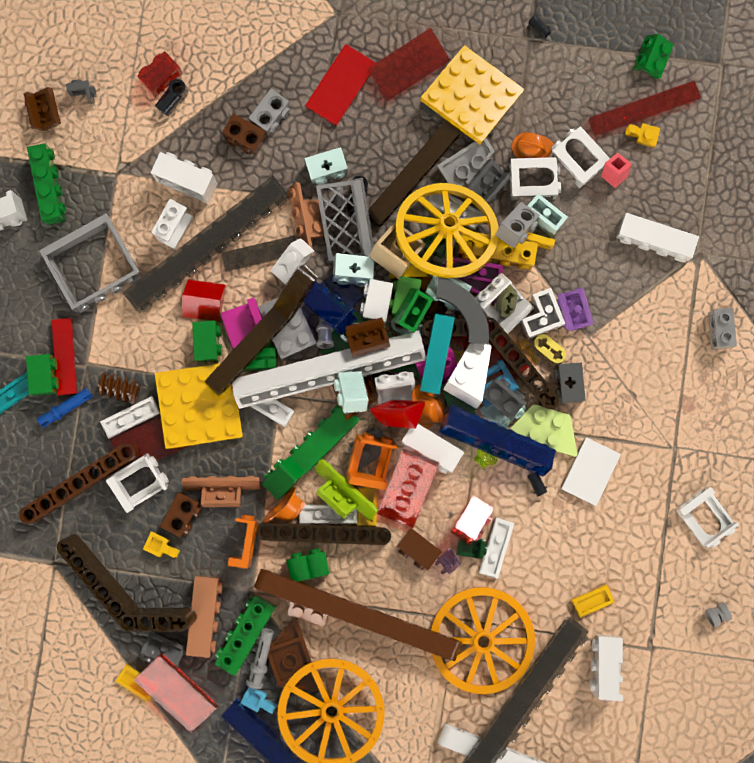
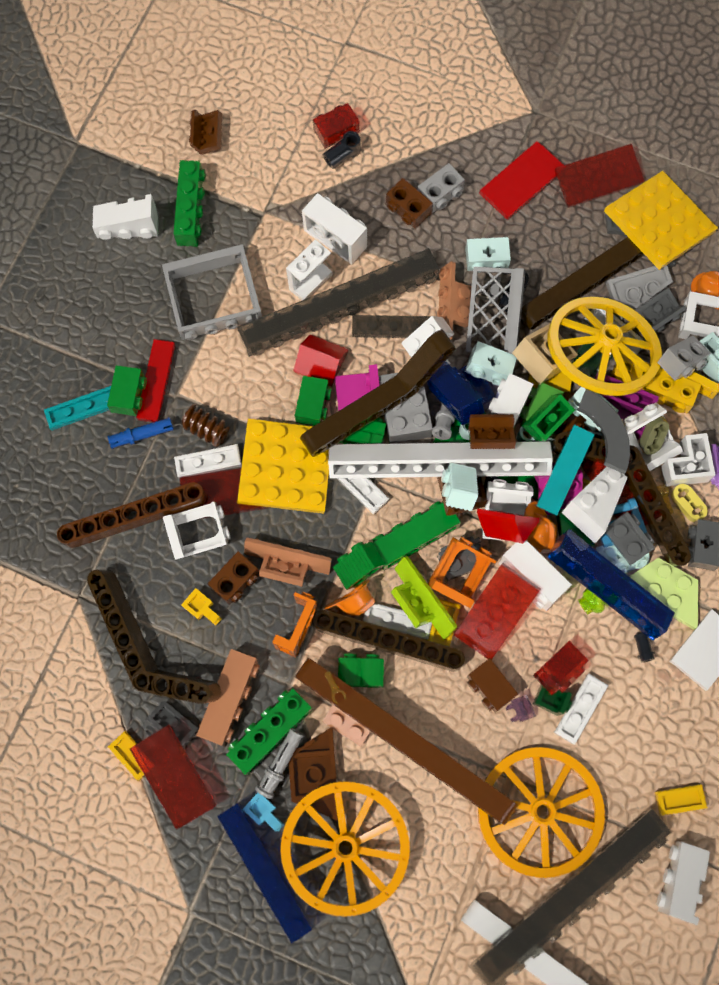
camera: 15 degrees right, 10 degrees down
(80, 87) = (251, 120): dark grey bracket -> none
(290, 591) = (333, 686): none -> clear yellow hand

